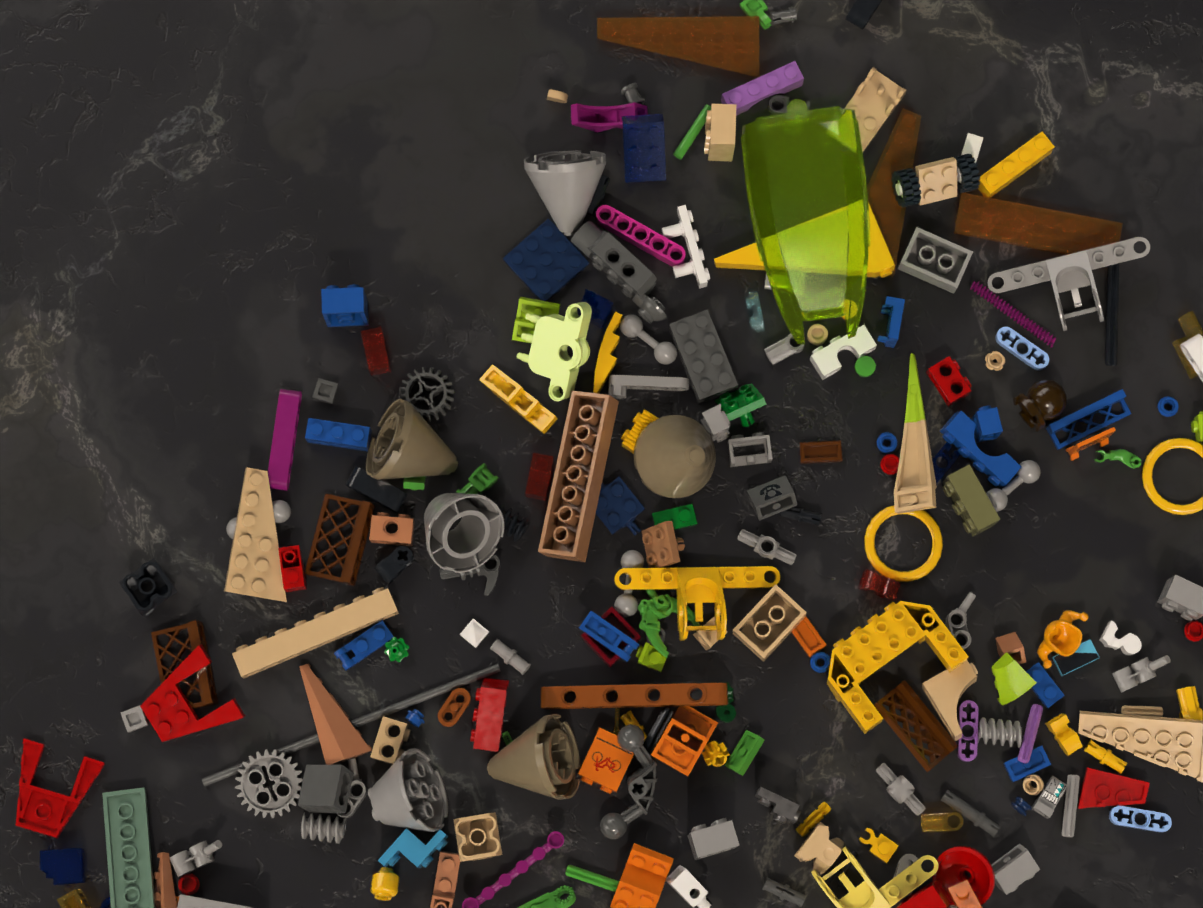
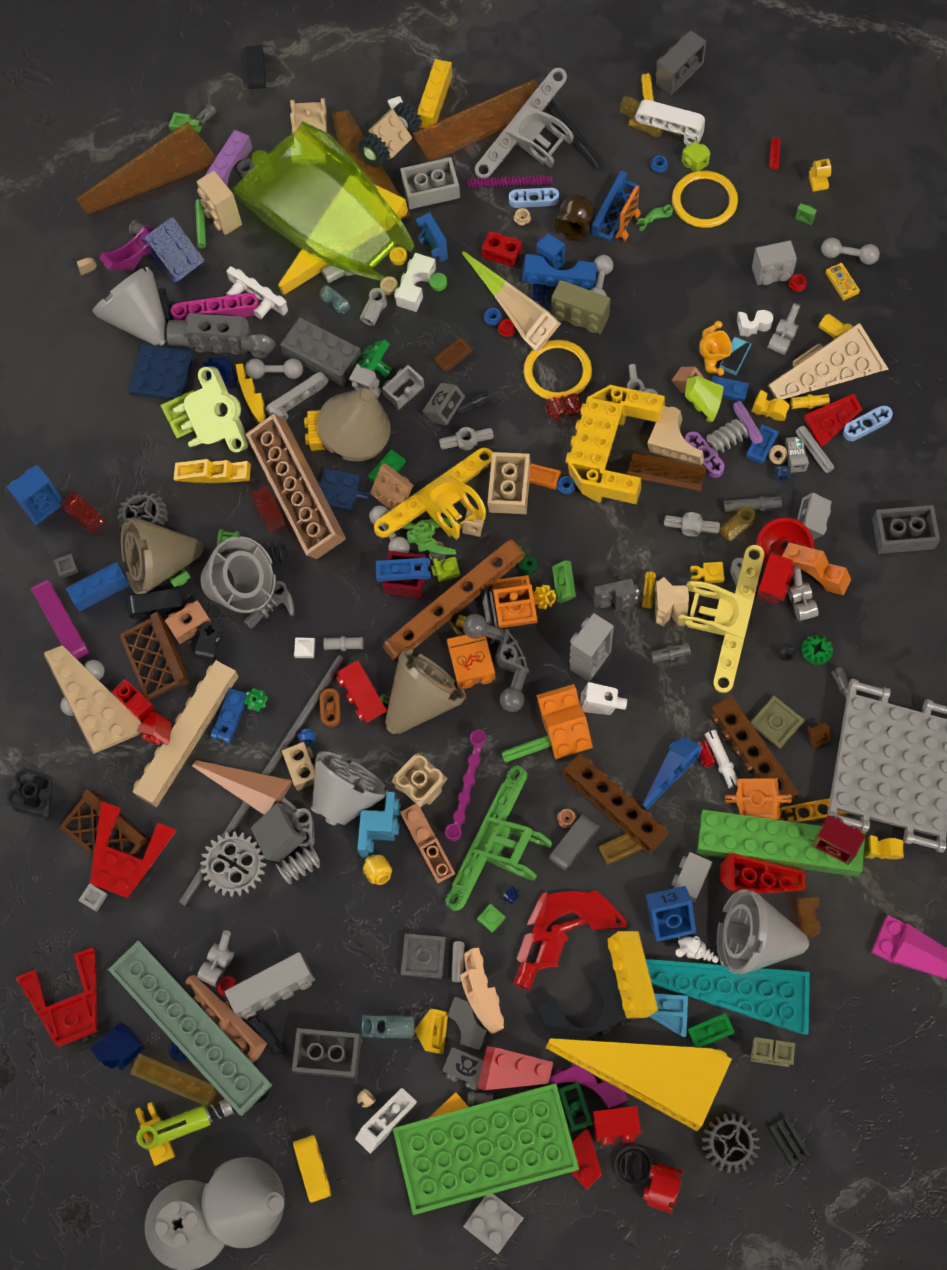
camera: 30 degrees left, 10 degrees down
(291, 611) = (155, 729): none -> red slope

